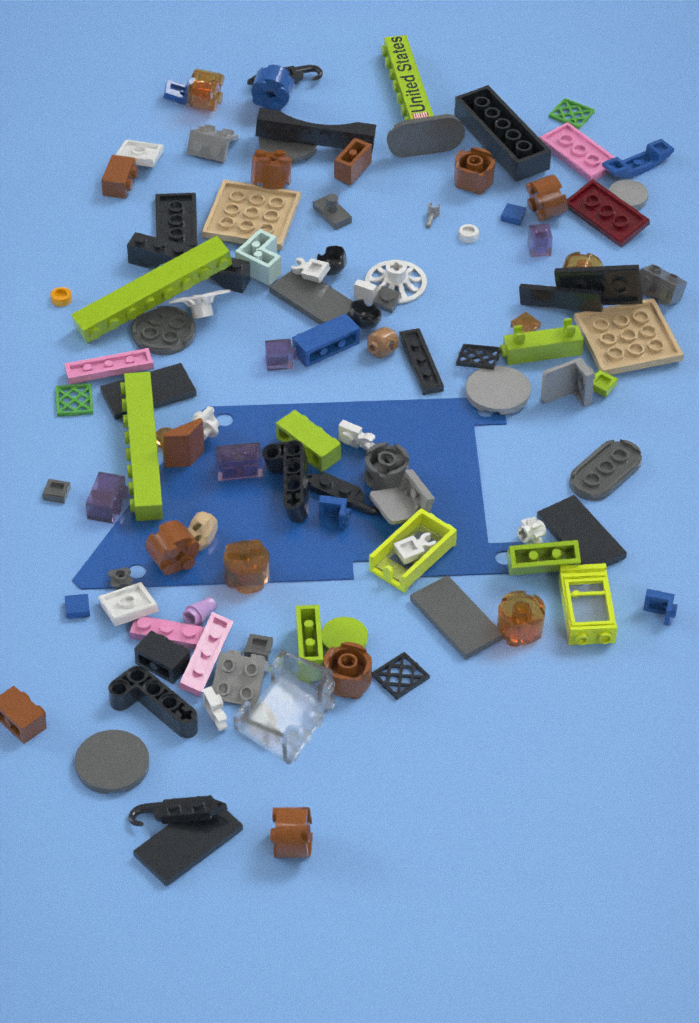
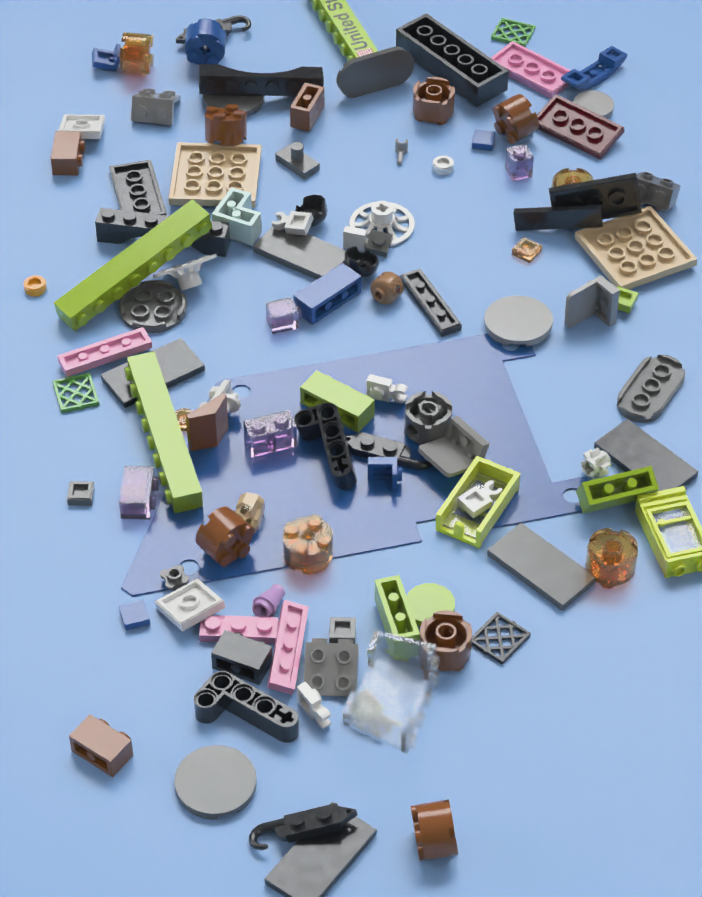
camera: 10 degrees left, 0 degrees up
(473, 349) = (481, 282): black window -> none
(542, 344) = (551, 267): lime brick -> none

